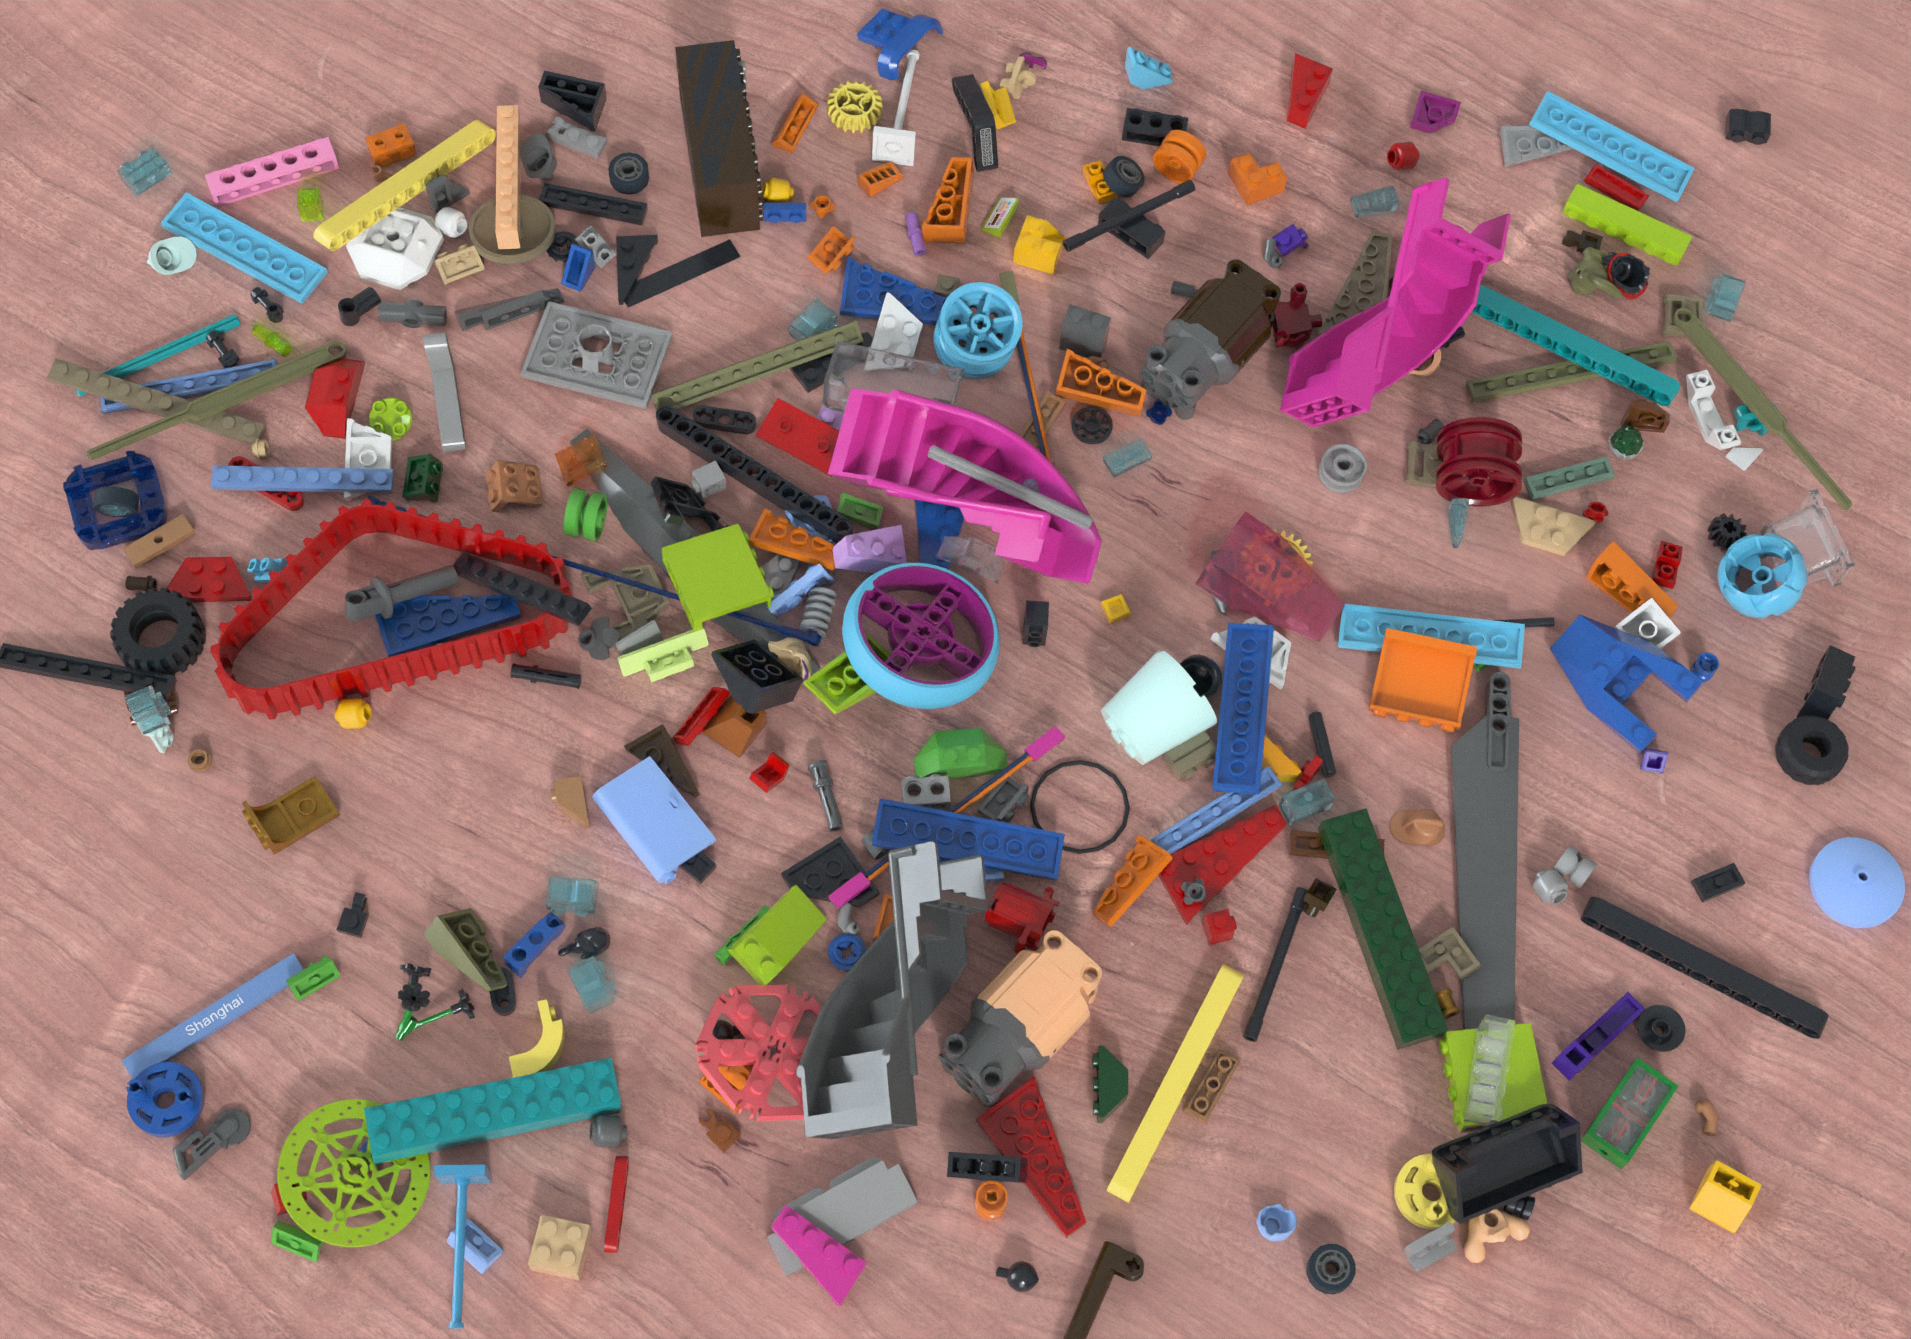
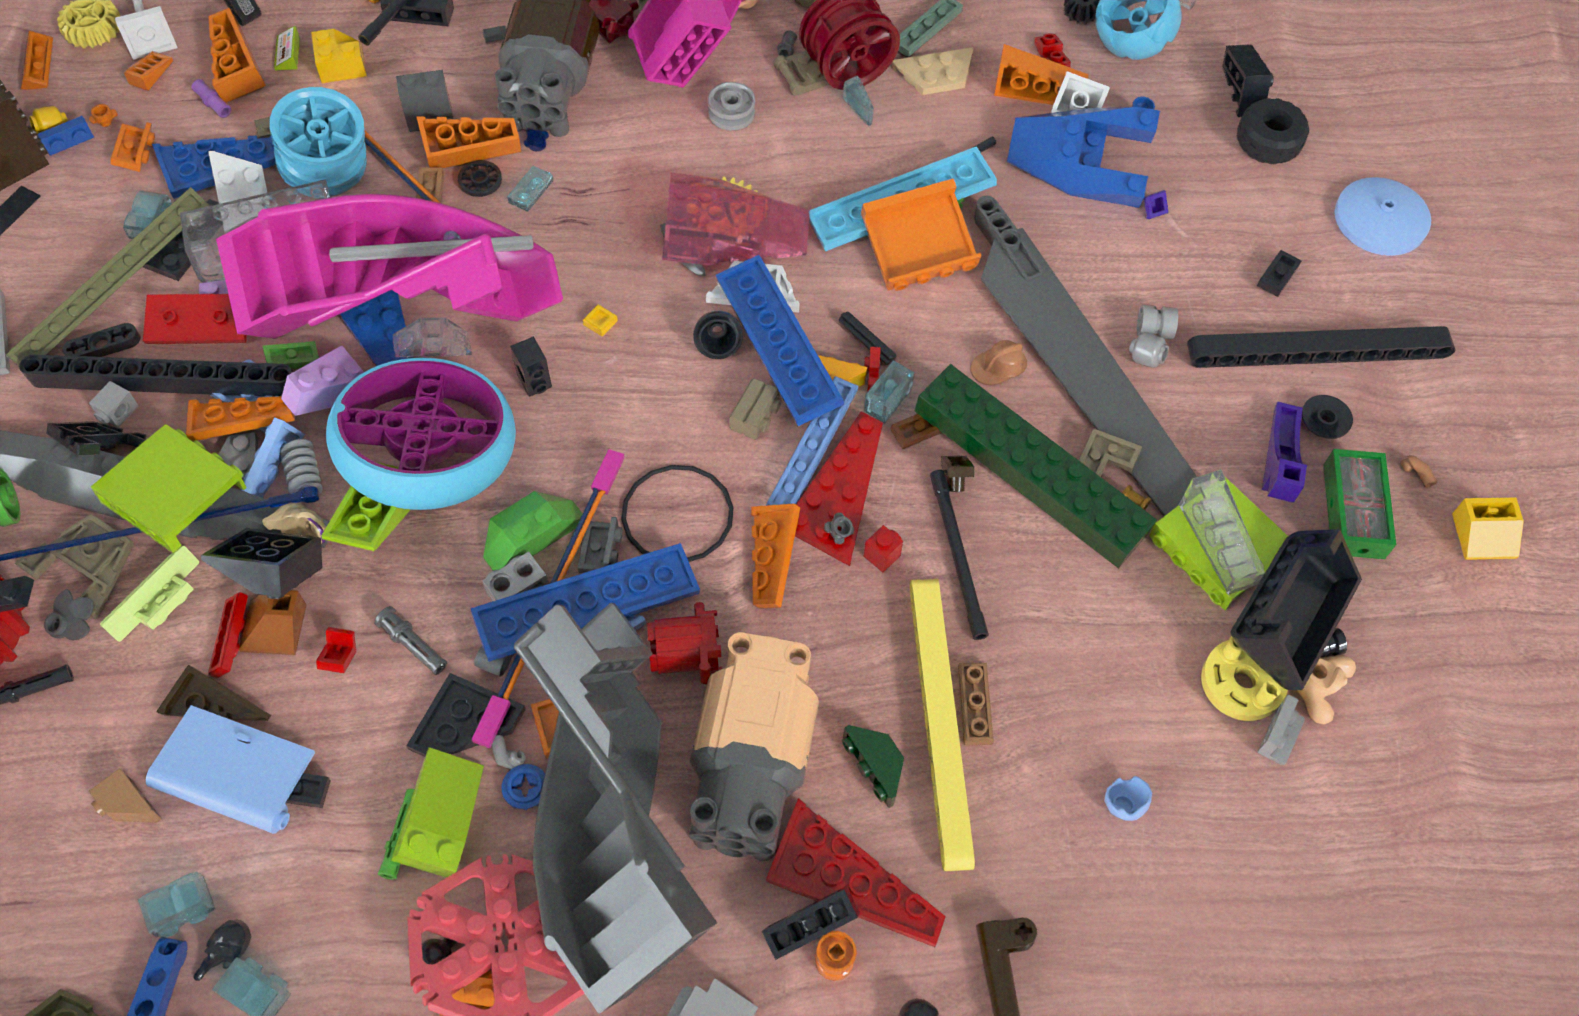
camera: 30 degrees left, 5 degrees down
(640, 638) = (115, 592): light grey slope -> none
(1157, 710) = (700, 377): light aqua cone -> none
(1334, 1255) = (1198, 822): wheel -> none
(1596, 511) = (967, 39): red plate -> none

